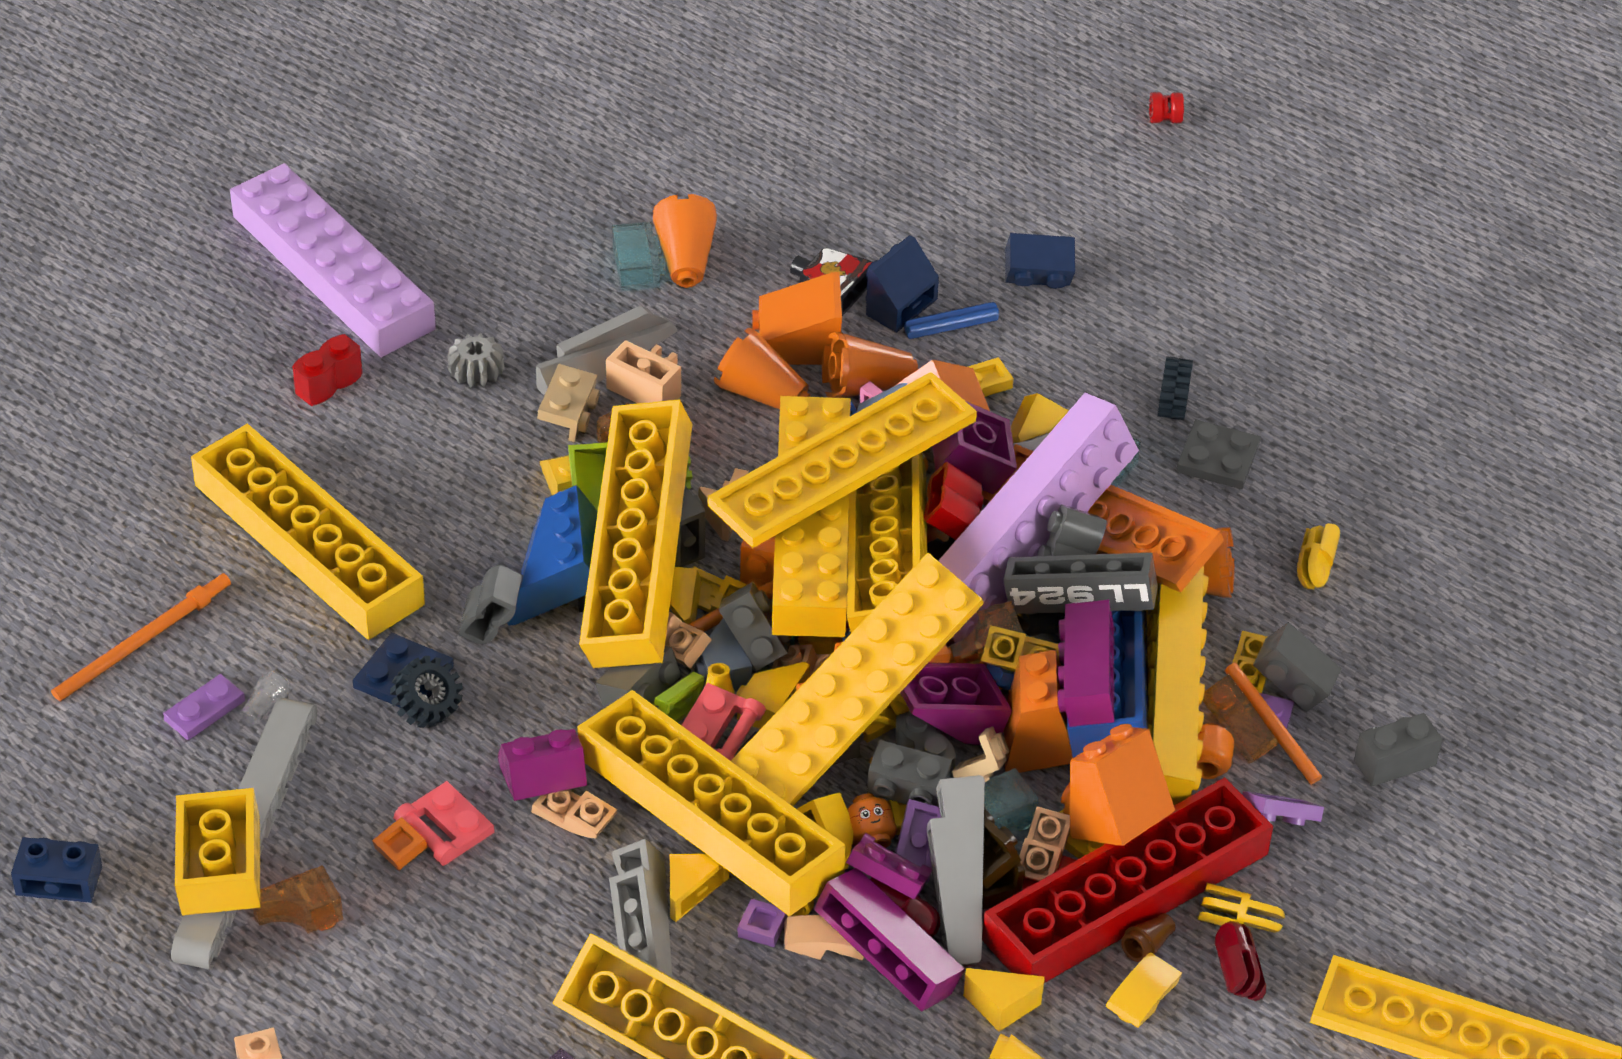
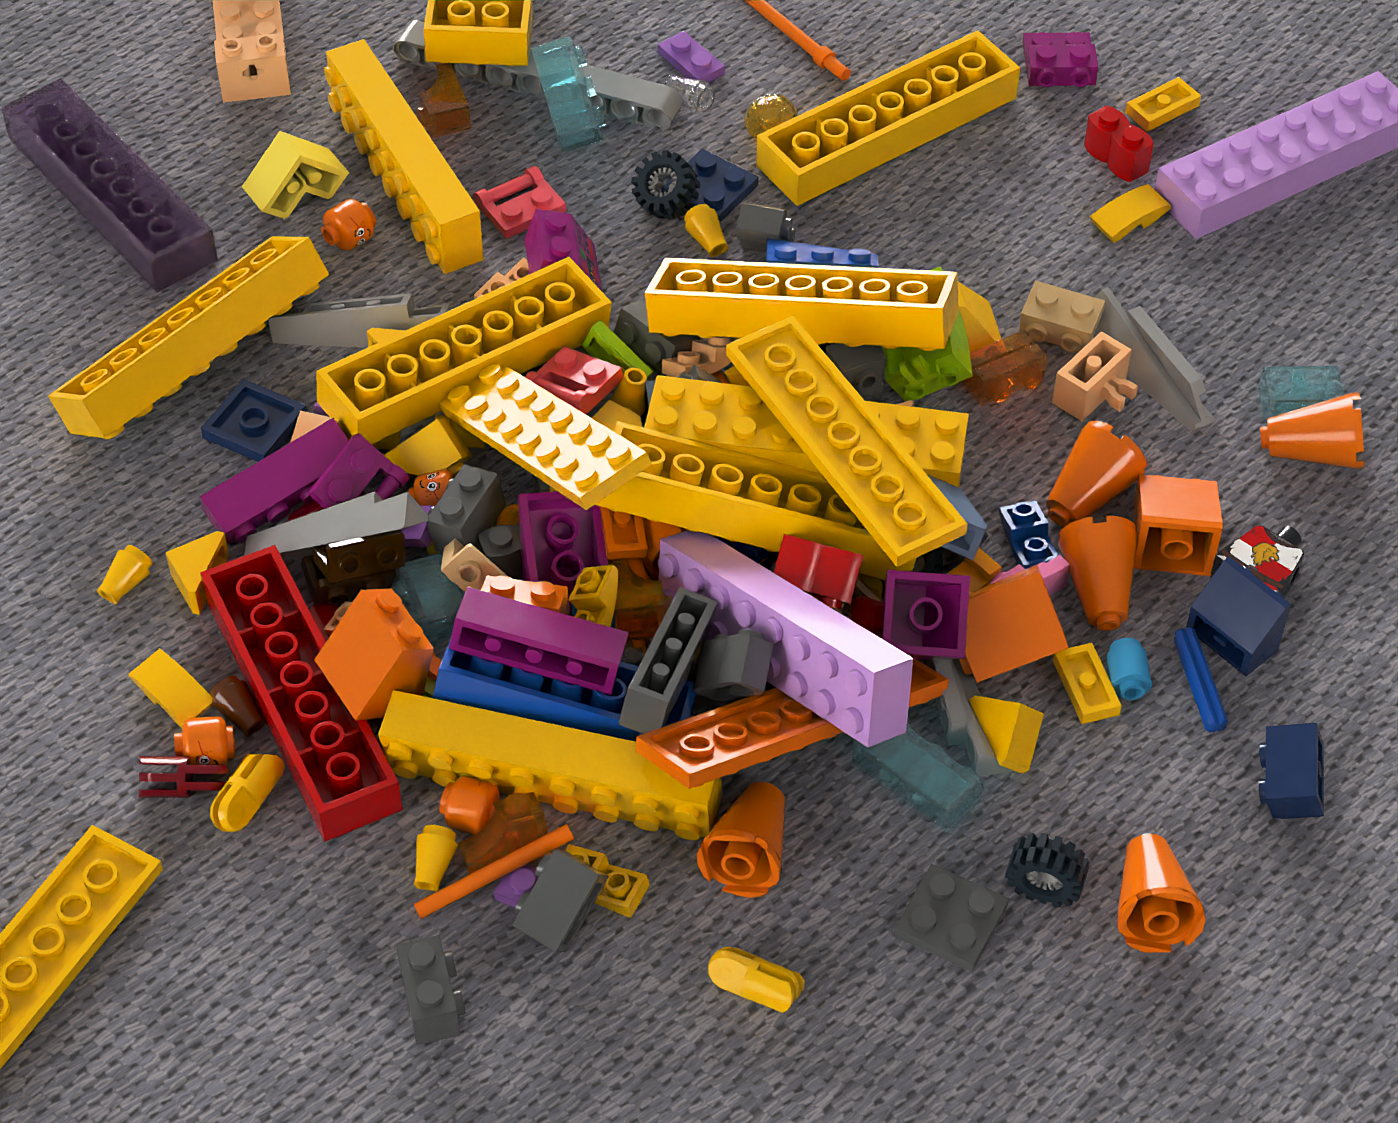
camera: 100 degrees right, 5 degrees up
(192, 419) = (1060, 59): none -> magenta plate
(259, 345) = (1163, 104): none -> yellow plate
(297, 632) = (768, 113): none -> clear yellow piece
(304, 776) = (569, 93): none -> clear light blue brick
(400, 843) = (497, 168): orange plate -> none
(406, 911) = (404, 157): none -> yellow brick
(415, 365) = (1134, 208): none -> yellow slope
(450, 1006) = (289, 171): none -> light yellow brick
(475, 360) = (1133, 255): light grey gear -> none
(475, 664) = (705, 228): none -> yellow cone
(503, 958) = (348, 224): none -> orange head
(797, 991) = (253, 421): none -> dark blue plate
(959, 352) = (1128, 668): none -> dark azure brick
(1172, 331) = (1156, 898): none -> orange cone
(1197, 950) = (206, 741): none -> orange head
(1265, 771) = (433, 855): none -> yellow cone
(1292, 809) = (364, 846): medium lavender plate -> none

